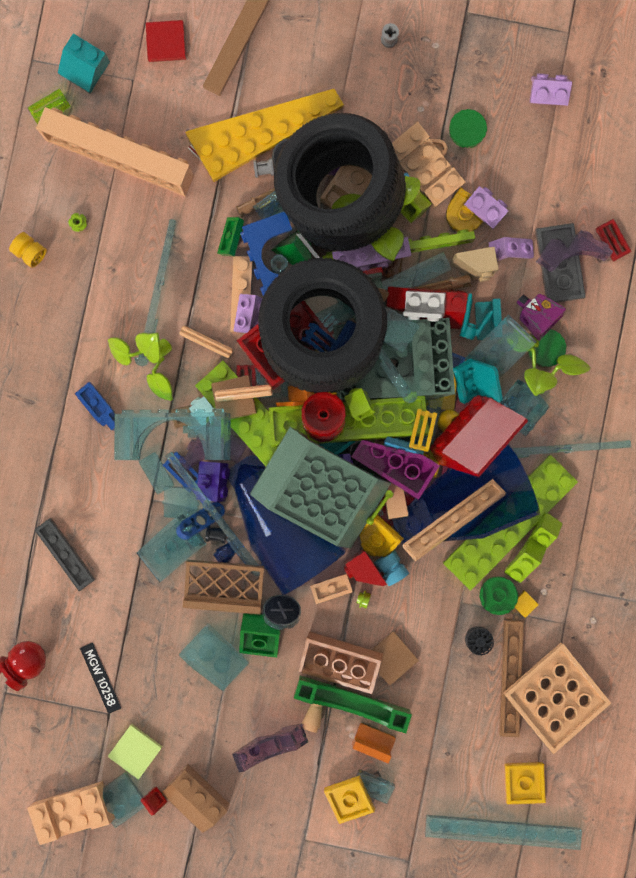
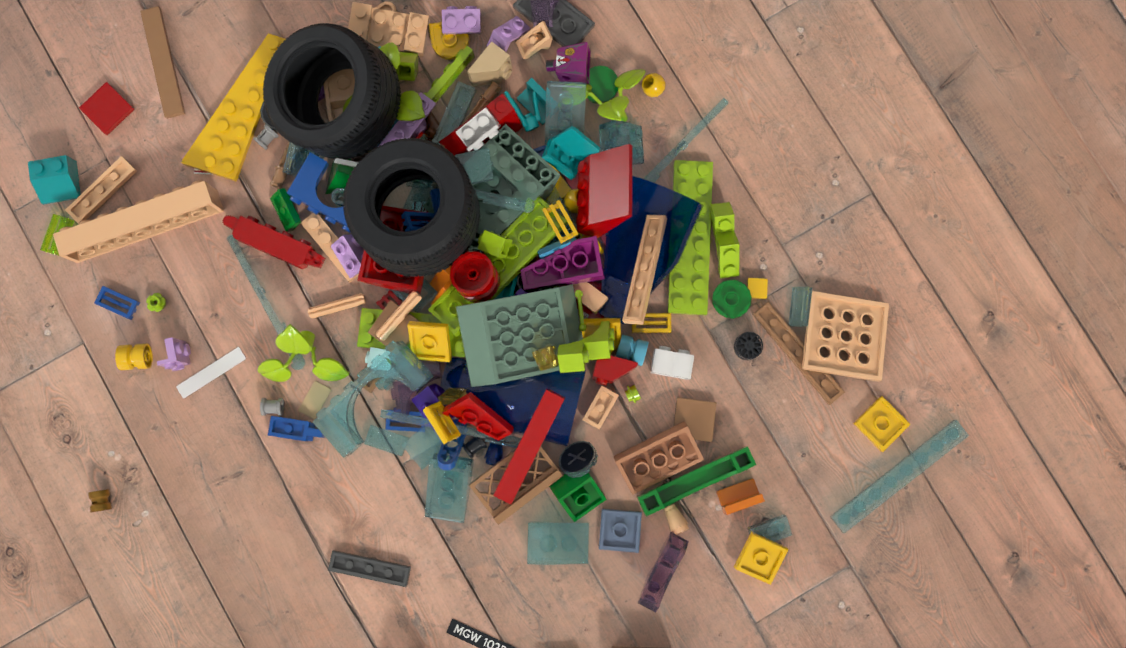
camera: 40 degrees left, 5 degrees down
(56, 211) = (132, 309): none -> blue tile
(60, 276) = (178, 354): none -> lavender bracket
(73, 309) = (211, 372): none -> white sticker
(95, 375) = (272, 406): none -> light grey bush
(109, 101) = (101, 190): none -> light nougat plate
(130, 397) = (314, 400): none -> tan sticker
(200, 254) = (273, 243): none -> red hinge
(205, 499) = (441, 423): none -> yellow tile
(230, 488) = (451, 395): none -> clear yellow tile
(237, 515) = (475, 412): none -> red wing
(250, 432) = (430, 341): none -> yellow tile
(254, 573) = (529, 446): none -> red tile
(266, 688) = (620, 530): none -> sand blue tile
(322, 523) = (545, 358): none -> clear yellow tile
(366, 546) = (575, 355): none -> lime arch
(411, 603) = (672, 363): none -> white brick
(436, 570) = (654, 330): none -> yellow tile
(527, 271) = (534, 40): none -> light nougat slope
(543, 646) = (800, 306): none -> clear light blue tile
(586, 384) = (653, 85): none -> yellow piece

